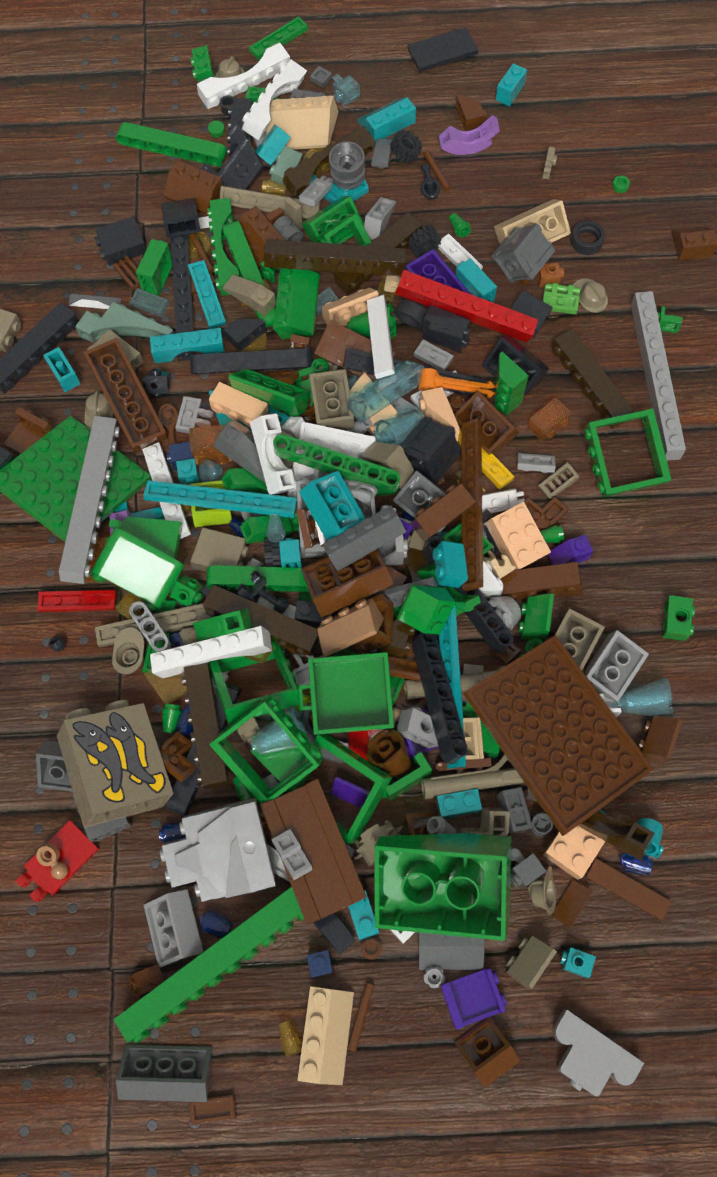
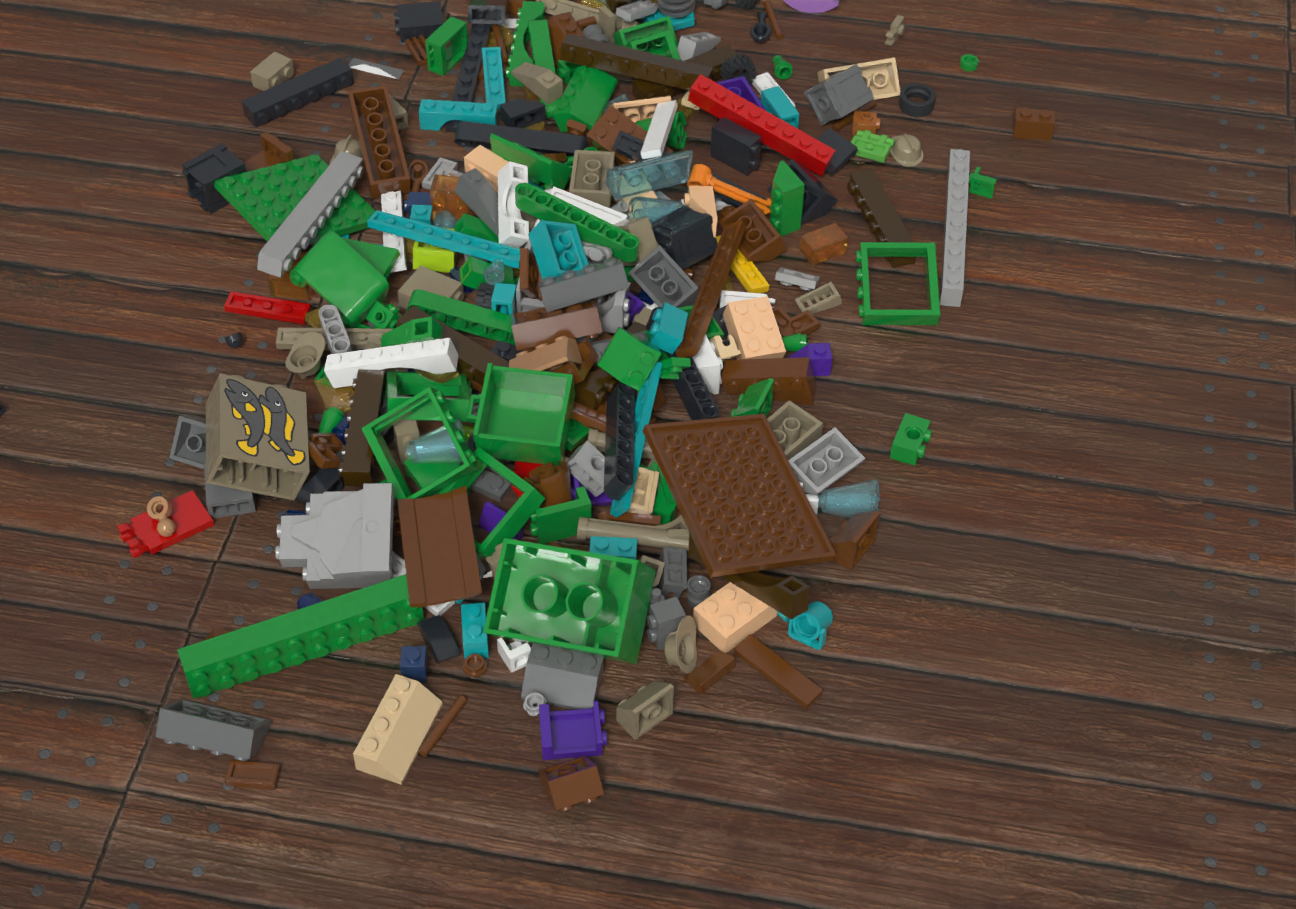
camera: 10 degrees right, 20 degrees down
(61, 369) = (321, 113): teal brick -> none
(121, 322) = (399, 85): sand green arch -> none
(149, 302) = (432, 77): clear light blue tile -> none
(157, 382) = (416, 140): black brick -> none
(173, 928) = (267, 593): light grey slope -> none
(280, 604) = (464, 309): black bar -> none
(289, 1039) = (356, 725): clear yellow cone -> none
(291, 854) = (415, 542): light grey slope -> none
(410, 313) = (700, 126): black tyre -> none
(433, 355) = (719, 168): light grey plate -> none
(442, 511) = (675, 283): reddish brown wedge -> none
(506, 609) = (721, 392): light grey cone -> none
(577, 962) = (698, 721): teal brick -> none
(592, 1056) = (687, 809): light grey brick -> none
(636, 866) = (793, 646): clear blue brick -> none

